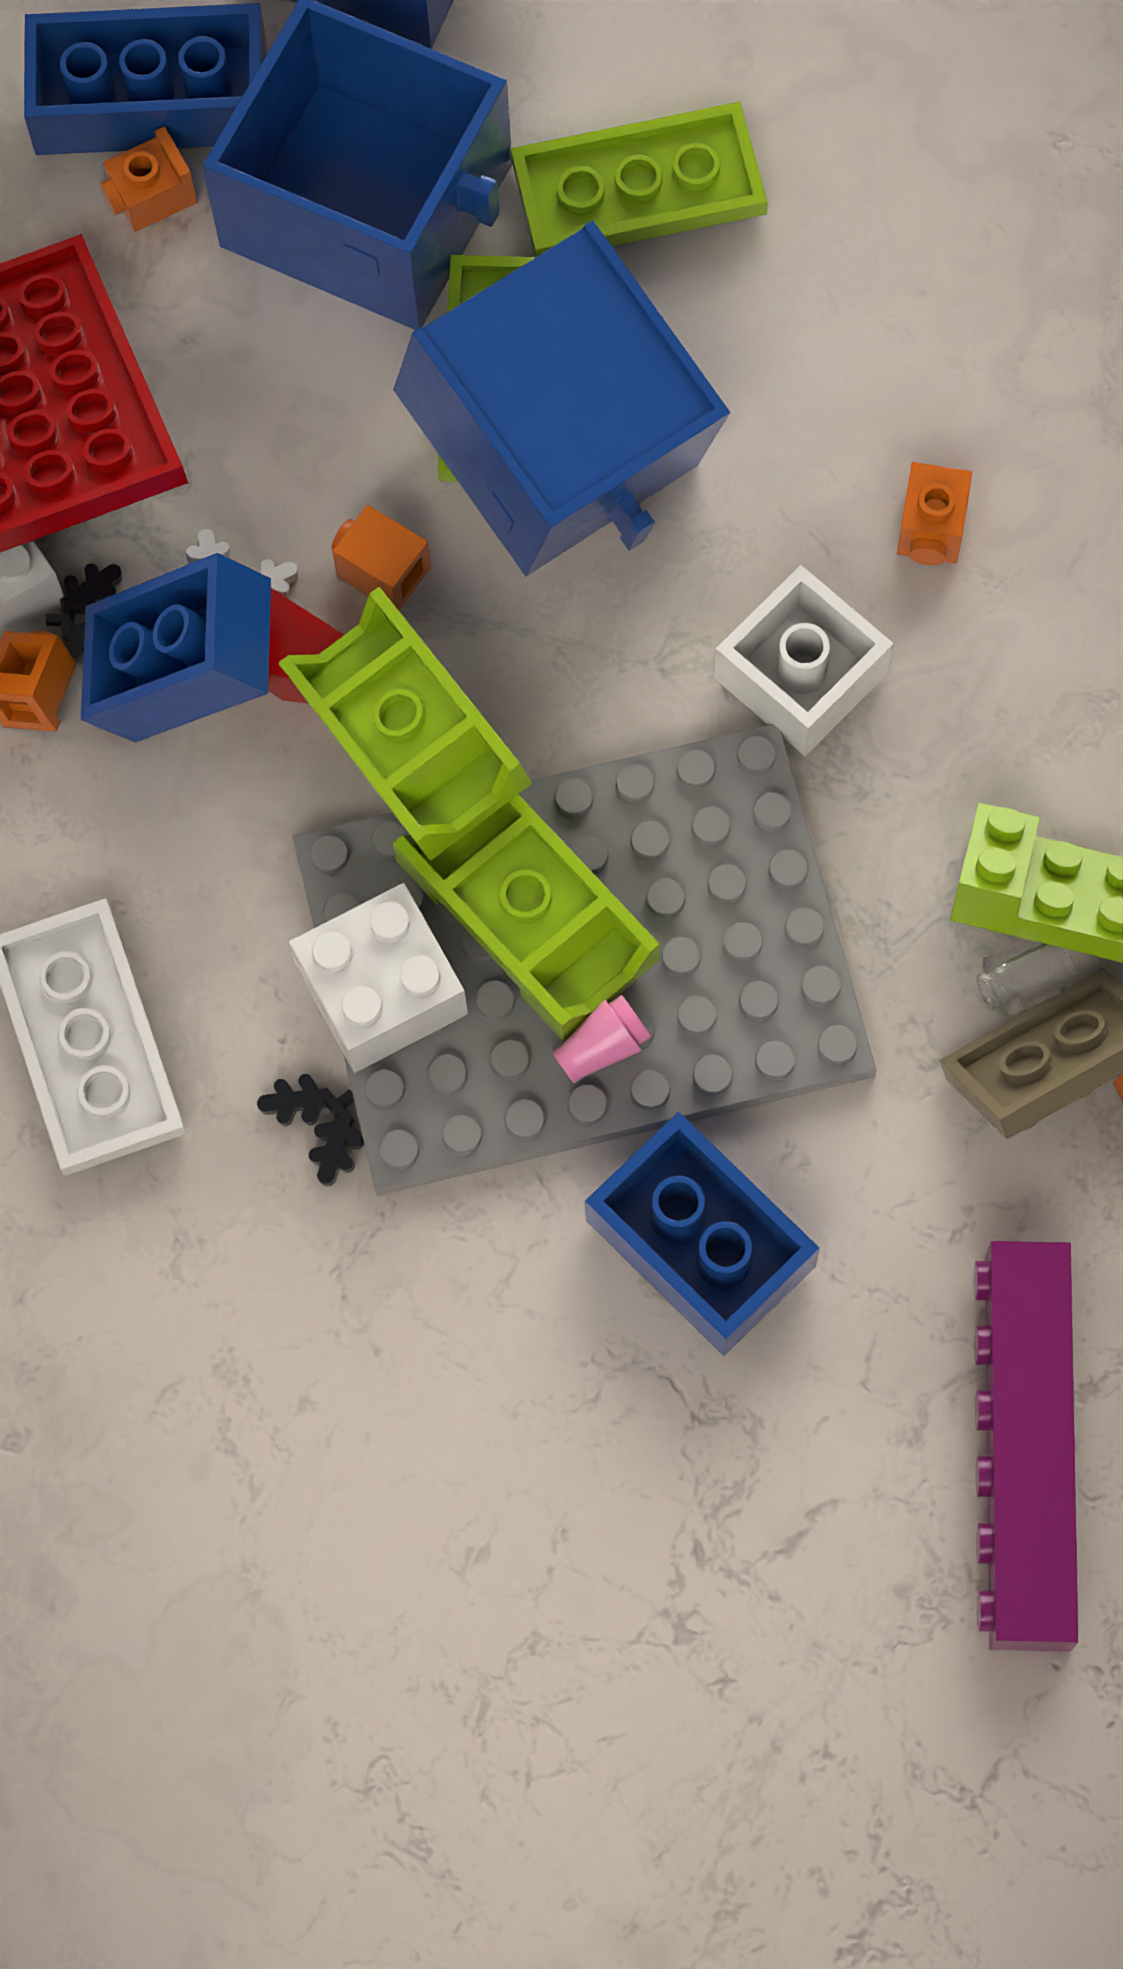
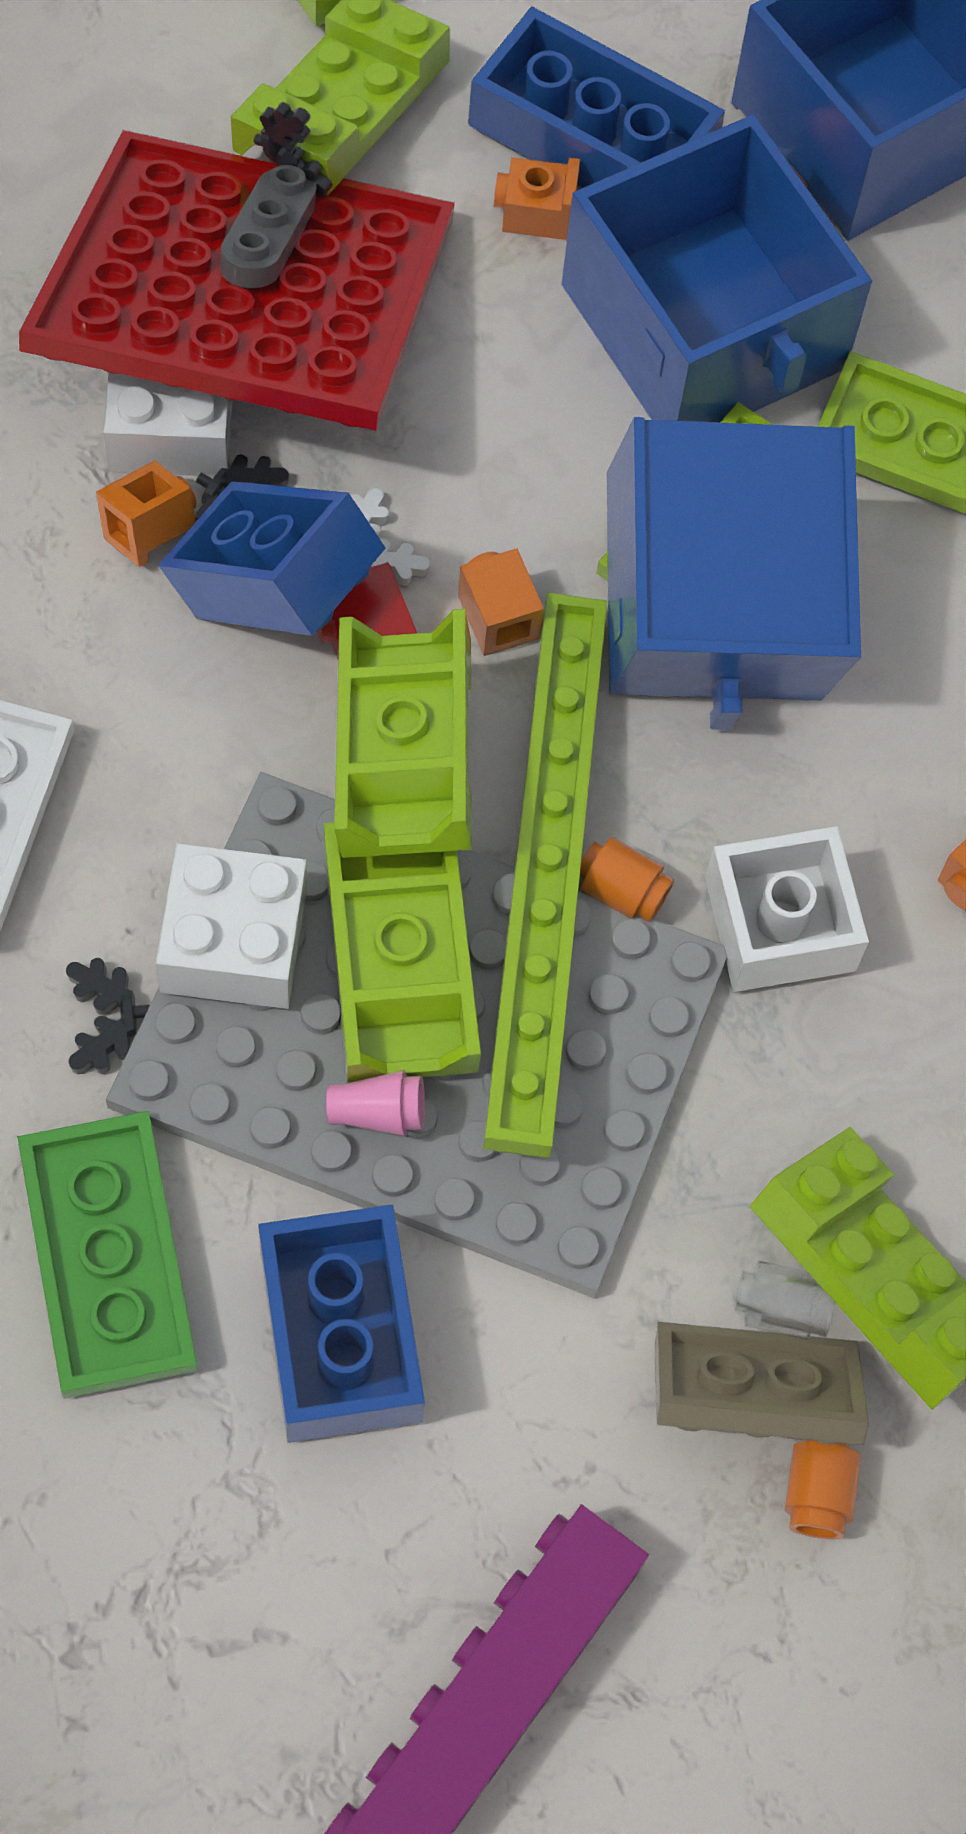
camera: 25 degrees right, 5 degrees down
(471, 1310) = (106, 1255): none -> bright green plate
(595, 761) = (546, 880): none -> lime plate
(655, 723) = (624, 879): none -> orange brick

